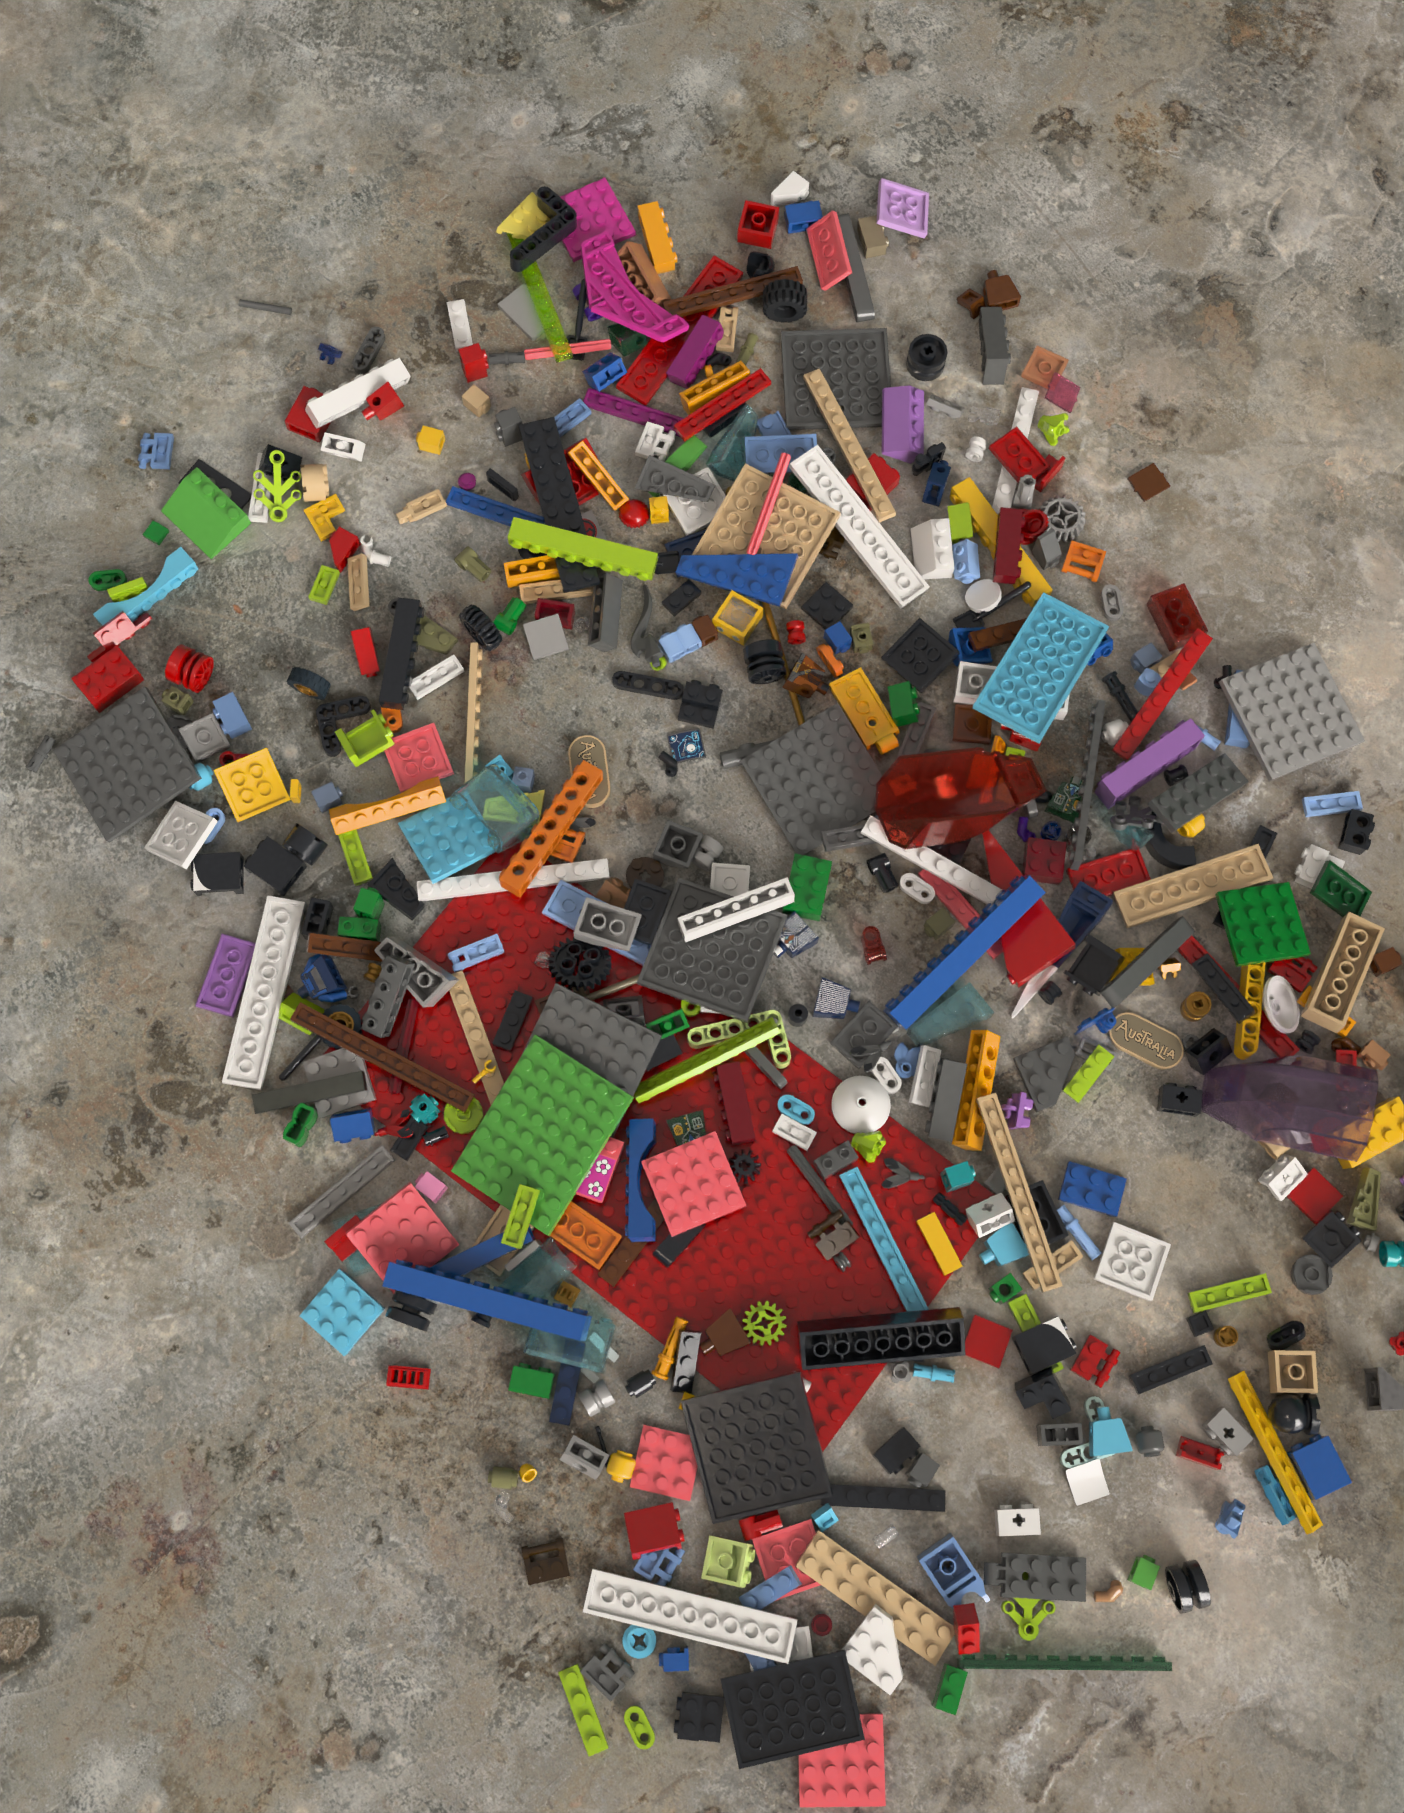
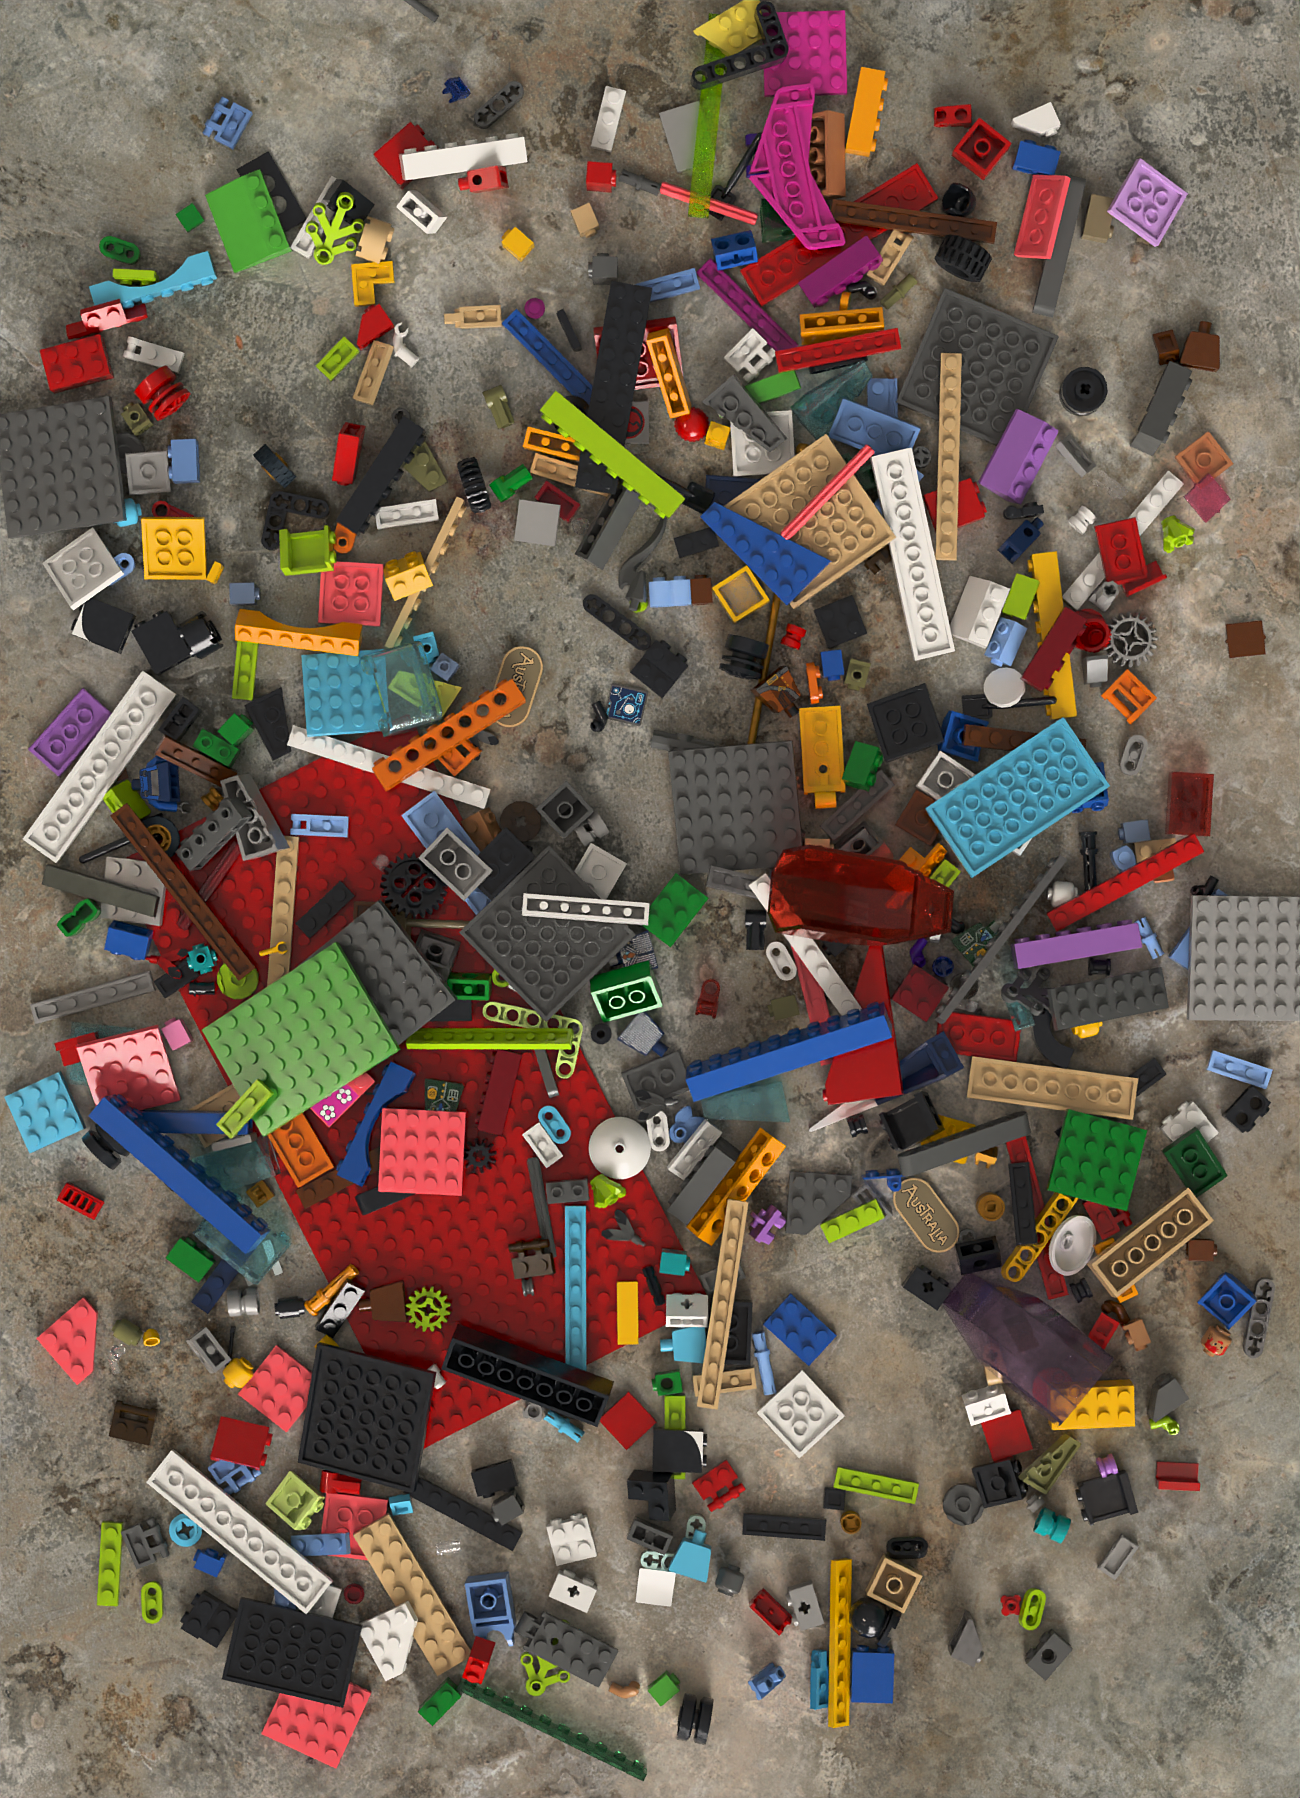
camera: 25 degrees right, 15 degrees up
(167, 646) = (154, 354): none -> white plate
(457, 1510) = (73, 1340): none -> coral plate
(458, 720) = (406, 575): none -> yellow bracket
(725, 213) = (953, 116): none -> red leg
(802, 967) = (626, 991): none -> green brick
(991, 1474) = (571, 1539): none -> white plate

